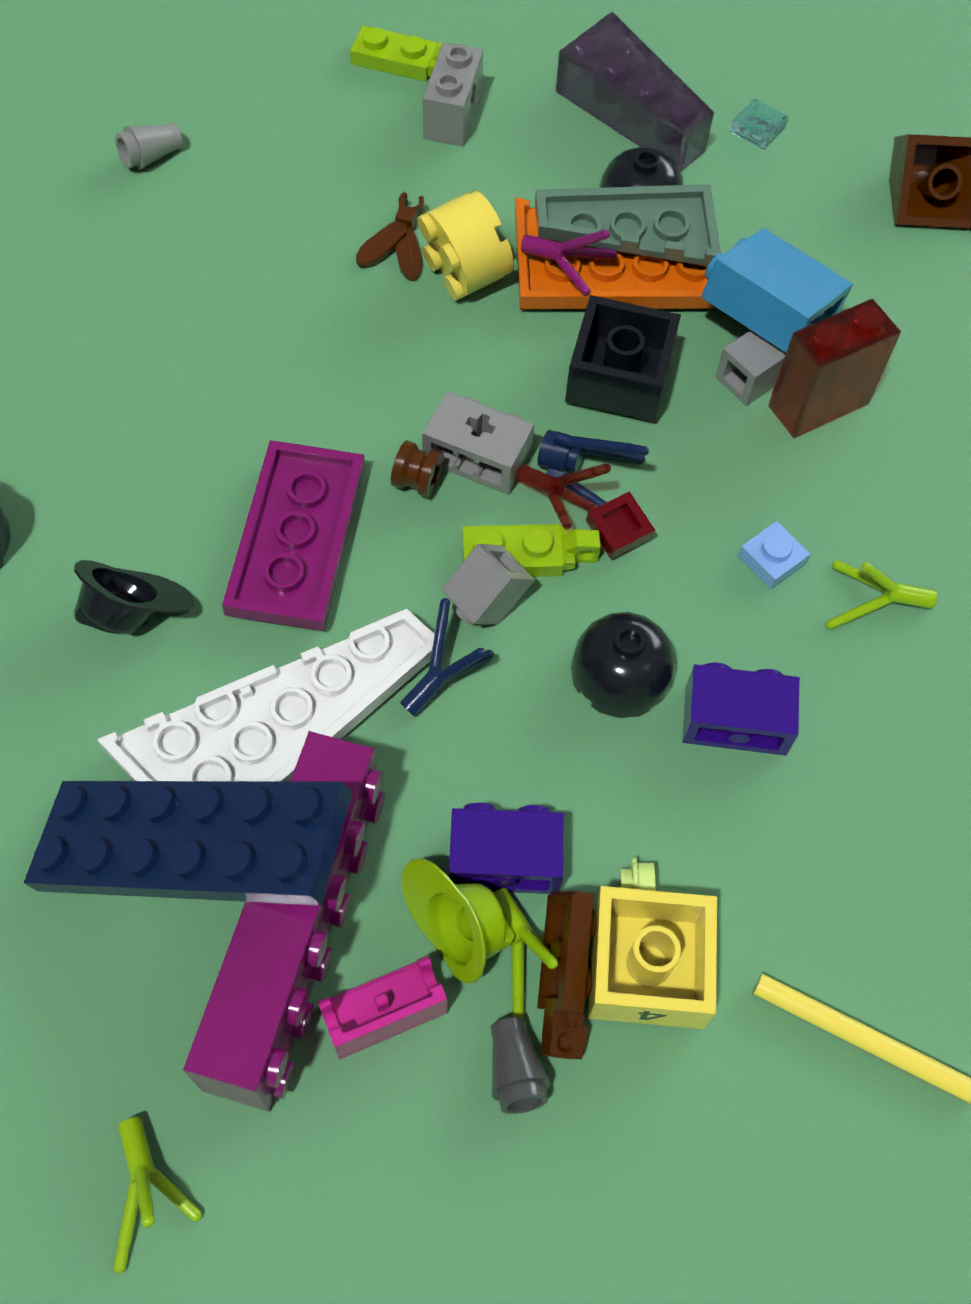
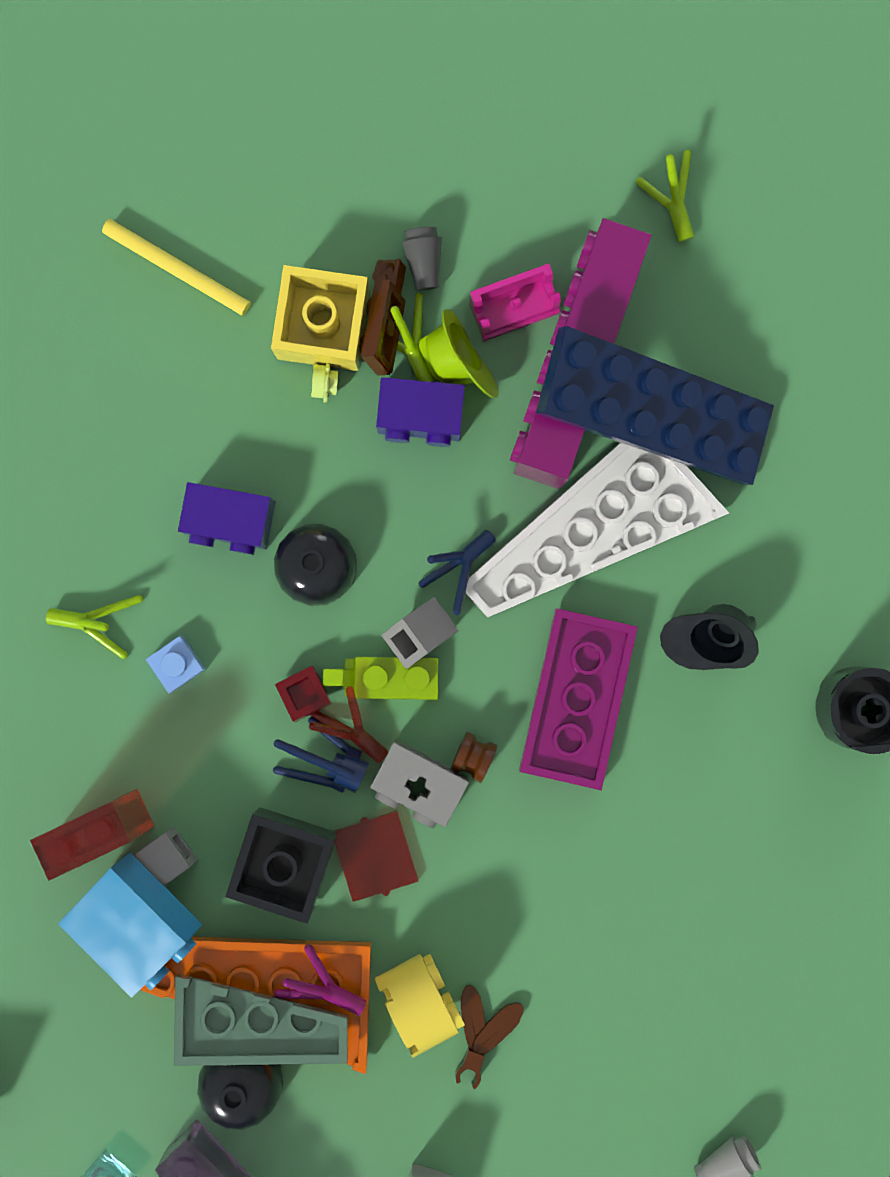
camera: 175 degrees left, 25 degrees up
(522, 382) = (375, 856): none -> clear red piece

